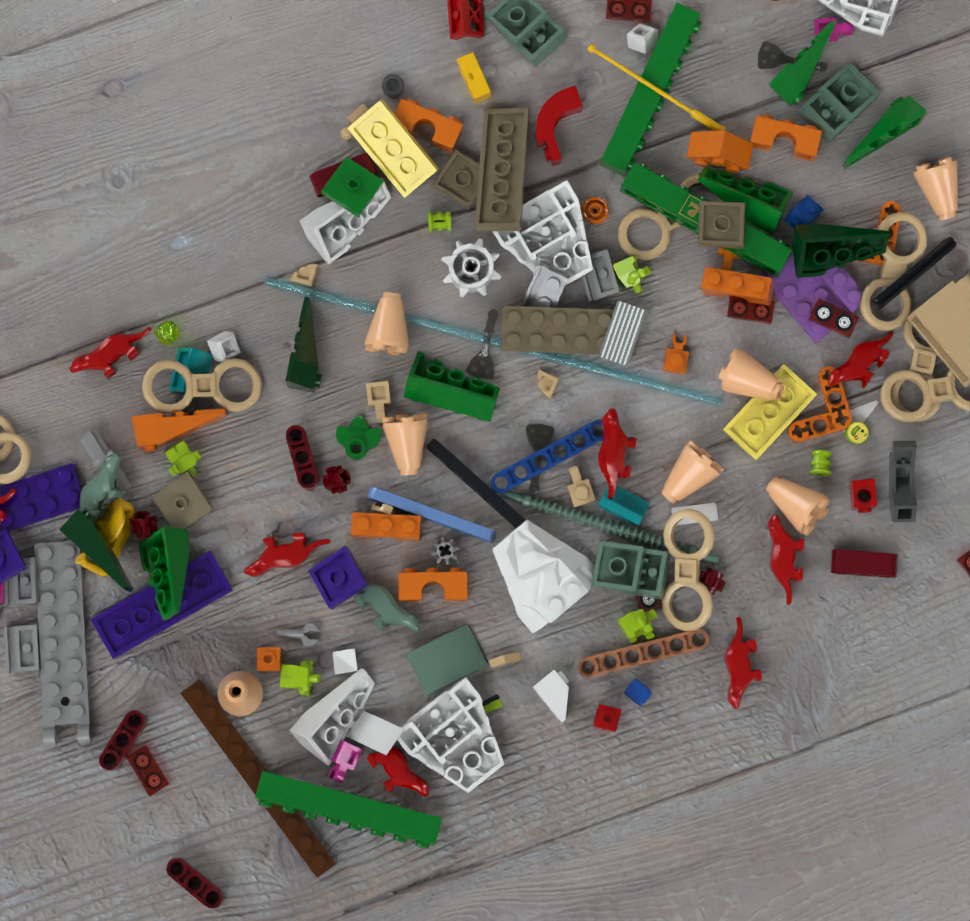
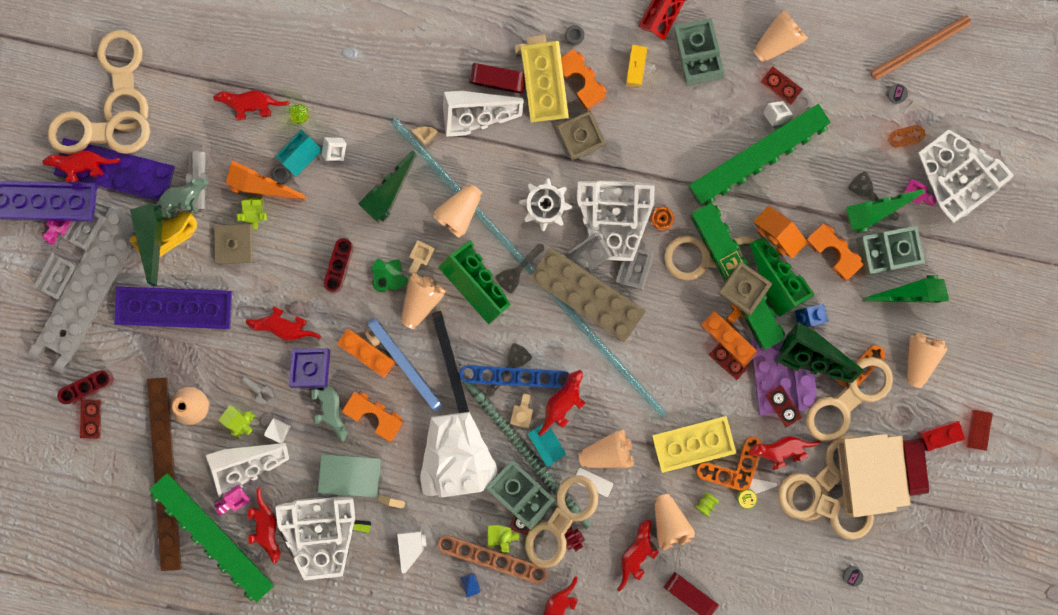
camera: 30 degrees right, 5 degrees up
(143, 524) = (195, 242): dark red gear -> none
(166, 560) = (195, 277): green wedge -> none
(184, 881) = (65, 514): dark red beam -> none
(202, 385) = (298, 168): tan bar -> none
(269, 659) = (224, 395): orange brick -> none
(336, 479) = (352, 296): dark red gear -> none
(352, 187) = (496, 92): green plate -> none
(375, 732) = (264, 496): white sticker -> none
(439, 225) = (547, 152): lime bush -> none
(443, 544) = (402, 399): light grey gear -> none
(502, 169) = (613, 147): dark tan plate -> none
(547, 383) = (547, 321): tan tile -> none
(554, 110) = (679, 126): red arch -> none
(607, 718) = (436, 589): red brick -> none
(622, 333) = (624, 320): light grey sticker -> none
(630, 273) = (658, 280): lime piece -> none
(675, 358) = (651, 362): orange plate -> none
(697, 115) = (779, 193): yellow piece -> none
(750, 378) = (694, 412): light nougat cone -> none
(867, 486) = (722, 538): red brick -> none
(901, 481) = (755, 556): dark grey arch -> none
(914, 273) = (863, 410): black axle -> none

